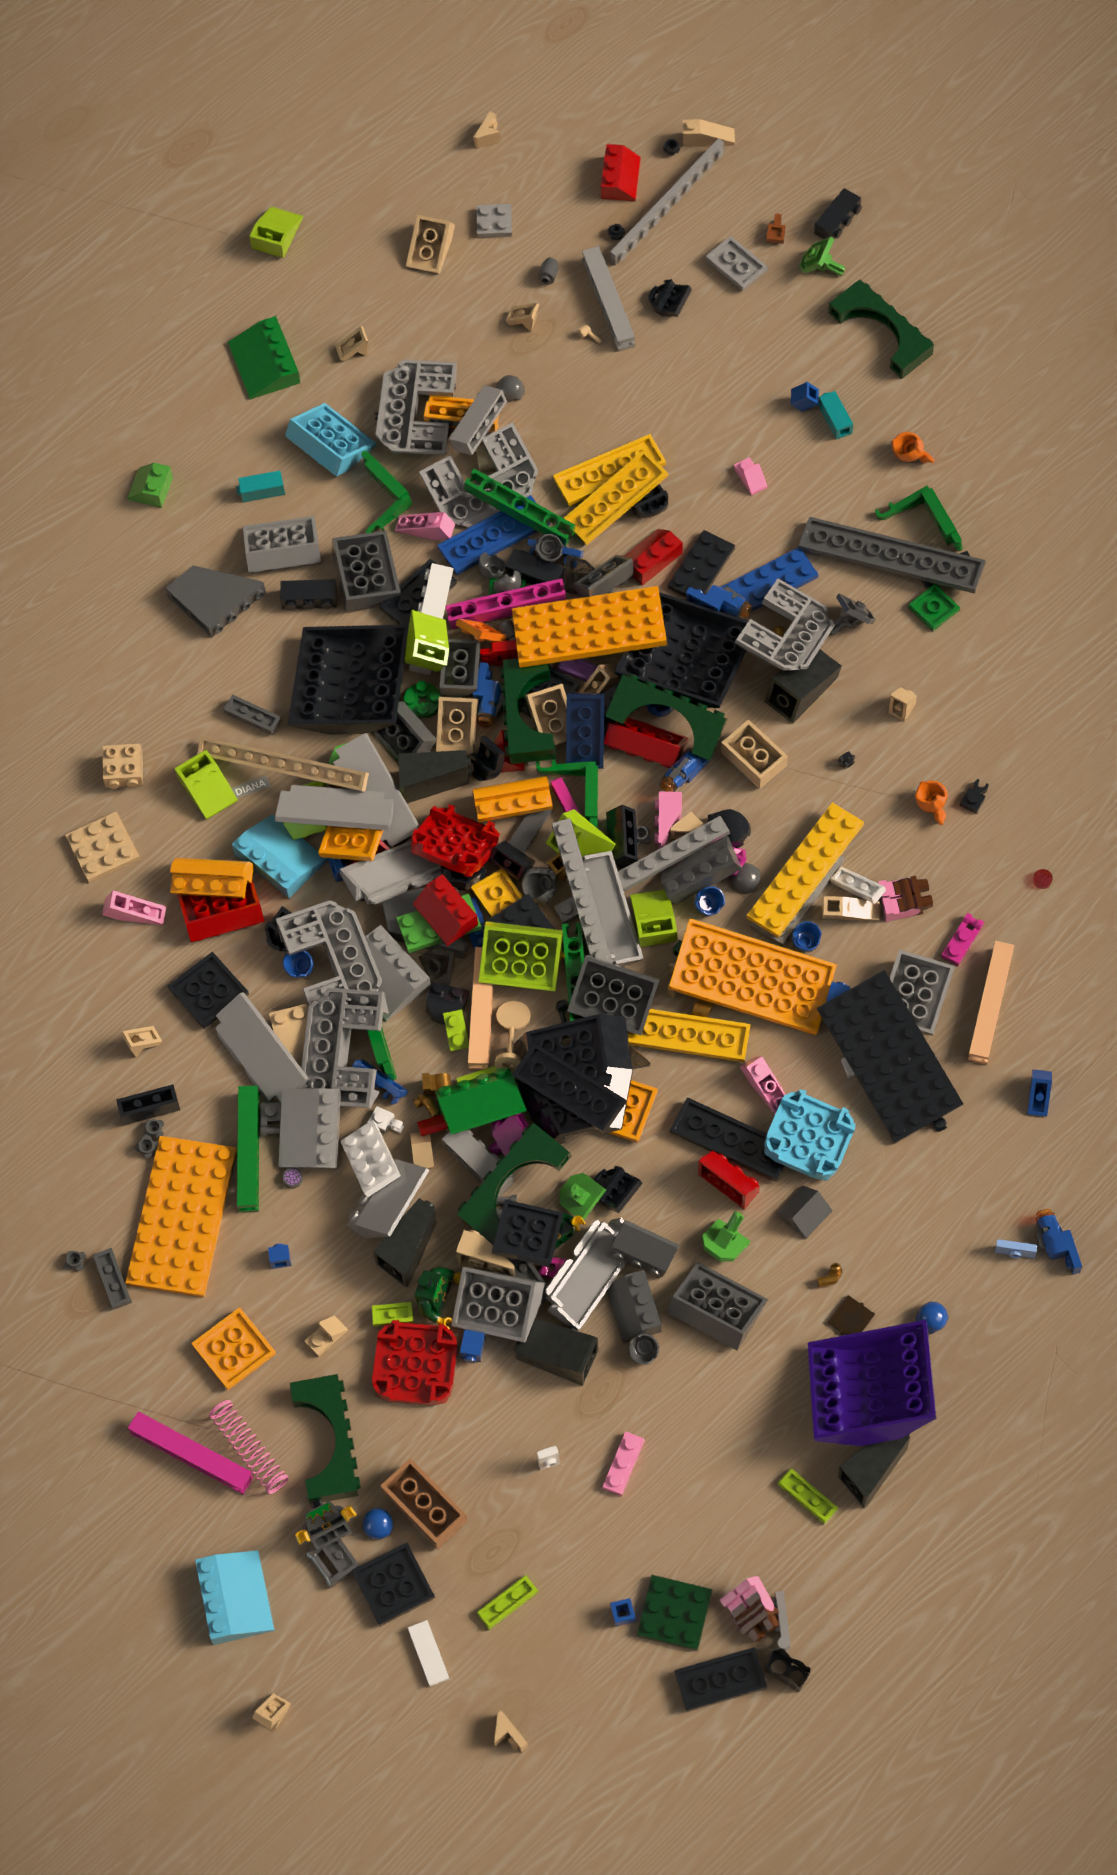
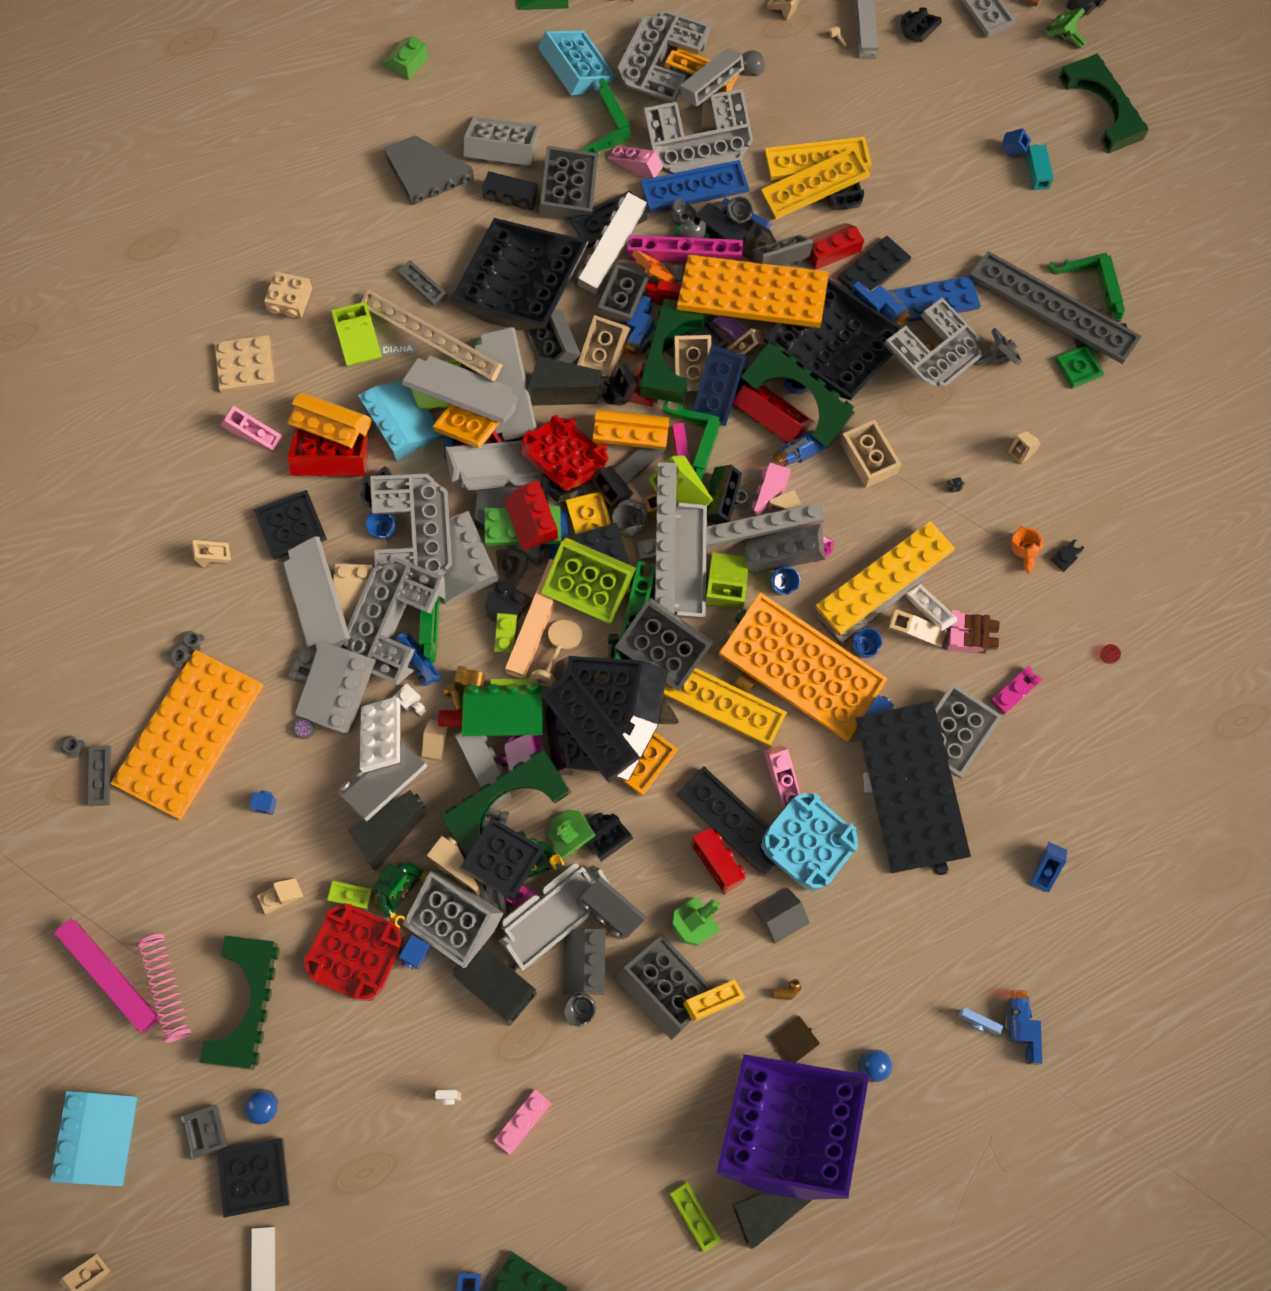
camera: 10 degrees right, 5 degrees up
(148, 1104) = (193, 617): black brick -> none
(233, 1348) = (187, 882): light orange plate -> none
(248, 1149) = (271, 688): green piece -> none
(260, 486) = (501, 85): teal brick -> none
(325, 1524) = (205, 1094): torso -> none
(422, 690) = (578, 306): green plate -> none
(424, 1503) = (310, 1103): medium nougat brick -> none
(427, 642) = (599, 261): lime slope -> none
(507, 501) = (715, 157): green piece -> none
(507, 1602) = (359, 1233): lime tile -> none
(737, 825) = (833, 515): black slope -> none
(746, 879) = (826, 570): dark grey hair -> none
(751, 475) = (945, 199): bright pink slope -> none
(765, 1302) = (714, 1000): none -> yellow plate
(796, 690) = (929, 404): pearl dark grey slope -> none
(909, 447) = (1099, 215): orange hair -> none
(991, 1003) = (1026, 762): light nougat piece -> none

